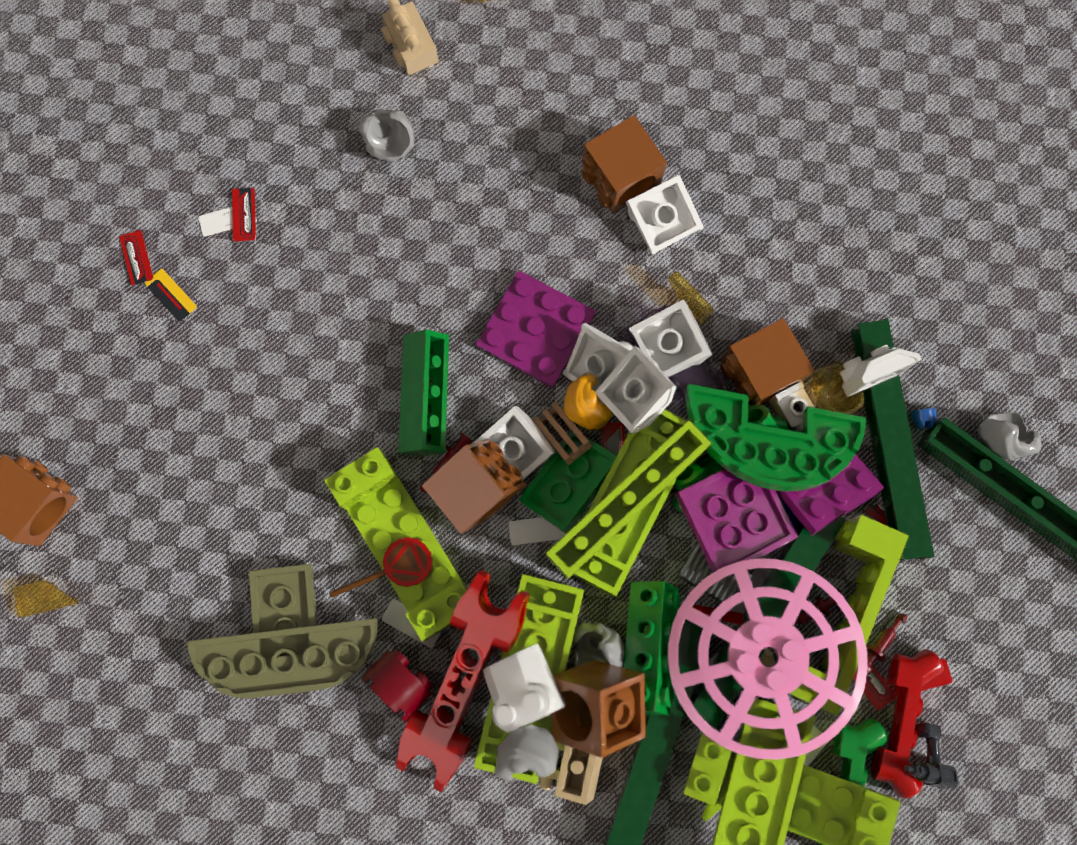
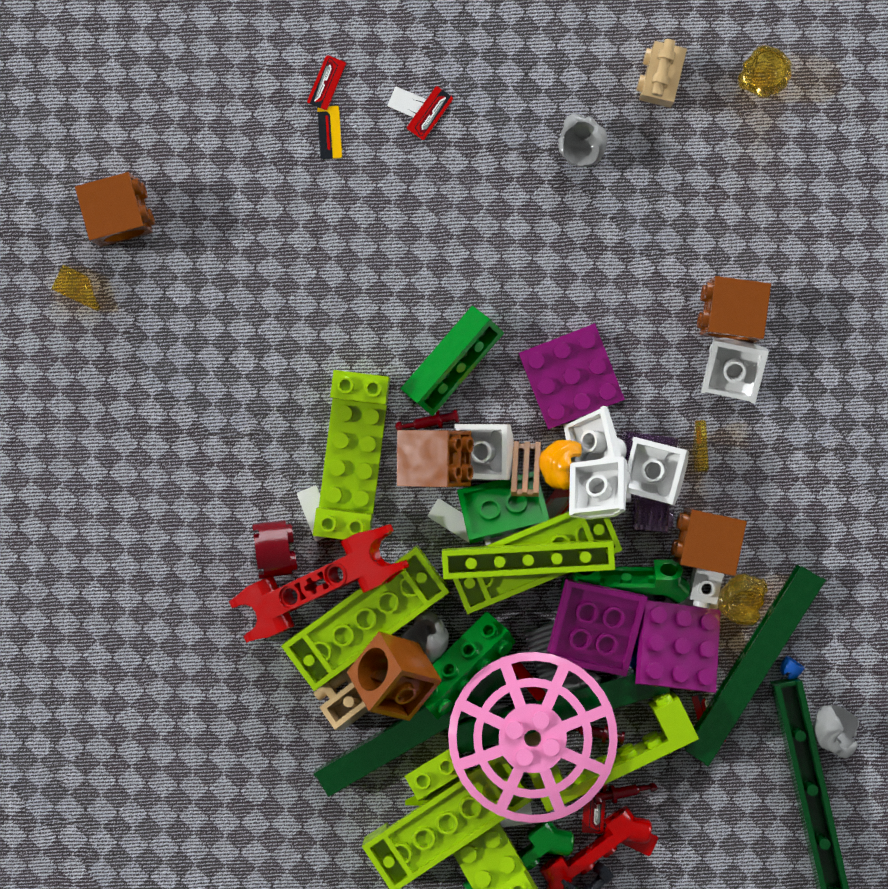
camera: 40 degrees right, 10 degrees up
(287, 644) = (218, 460): olive plate -> none
(404, 563) = (343, 469): piece -> none
(522, 689) = (353, 624): white slope -> none
(526, 750) = (324, 665): light grey hair -> none
(773, 455) = (653, 607): green plate -> none
(880, 367) = (781, 610): white slope -> none

